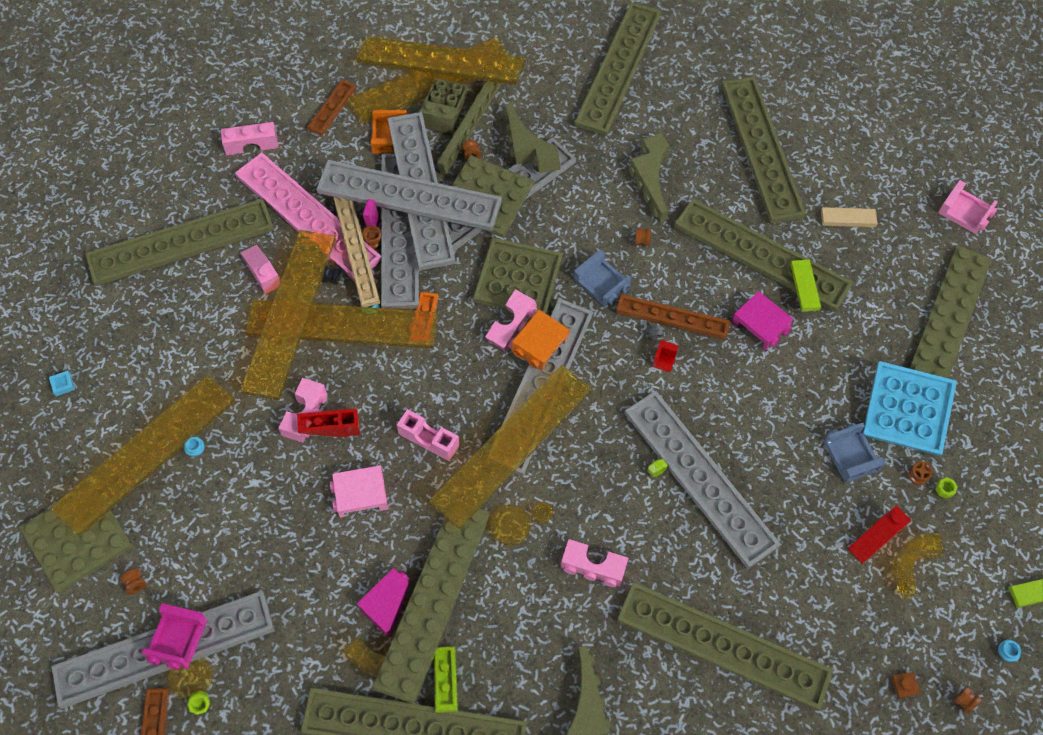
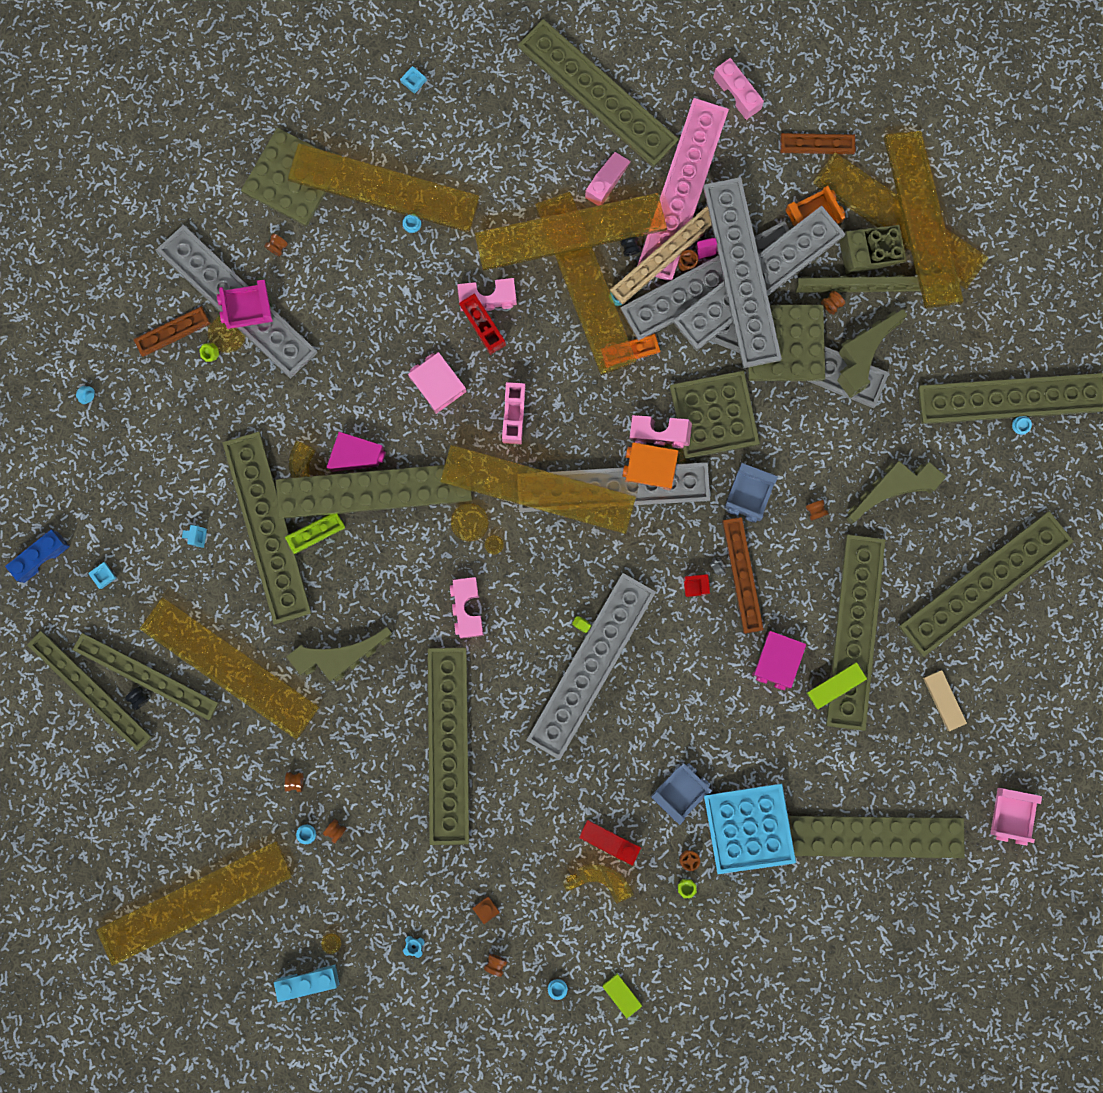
camera: 65 degrees right, 20 degrees up
(643, 71) = (1021, 425): none -> medium azure plate

